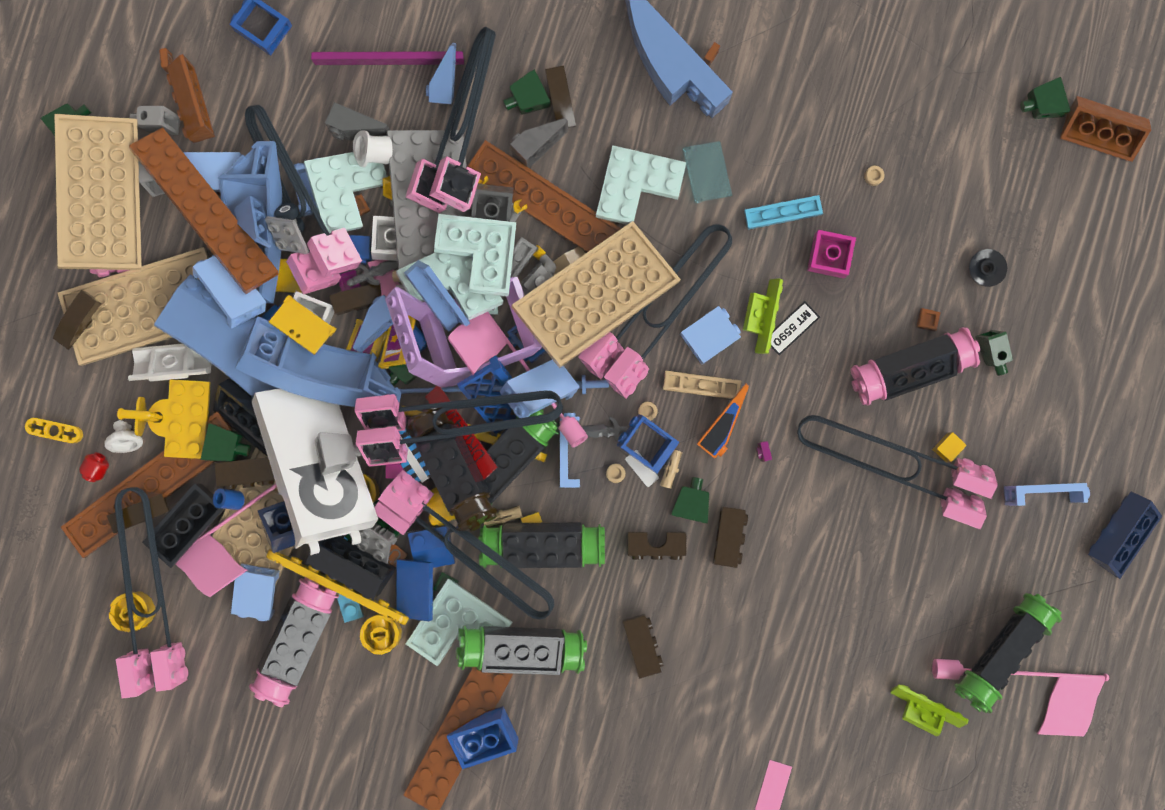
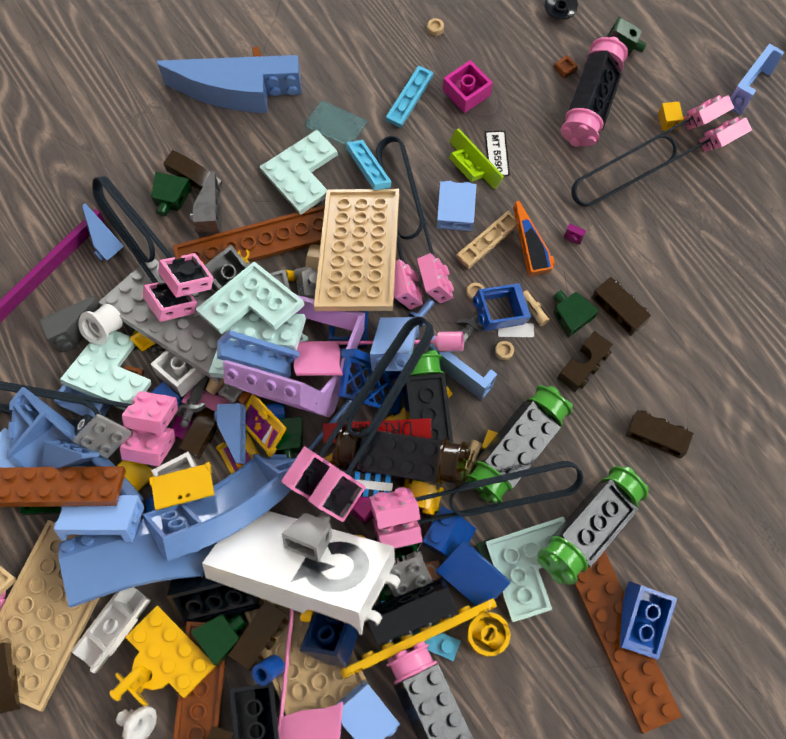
camera: 50 degrees left, 15 degrees down
(685, 234) = (368, 165): none -> medium azure plate

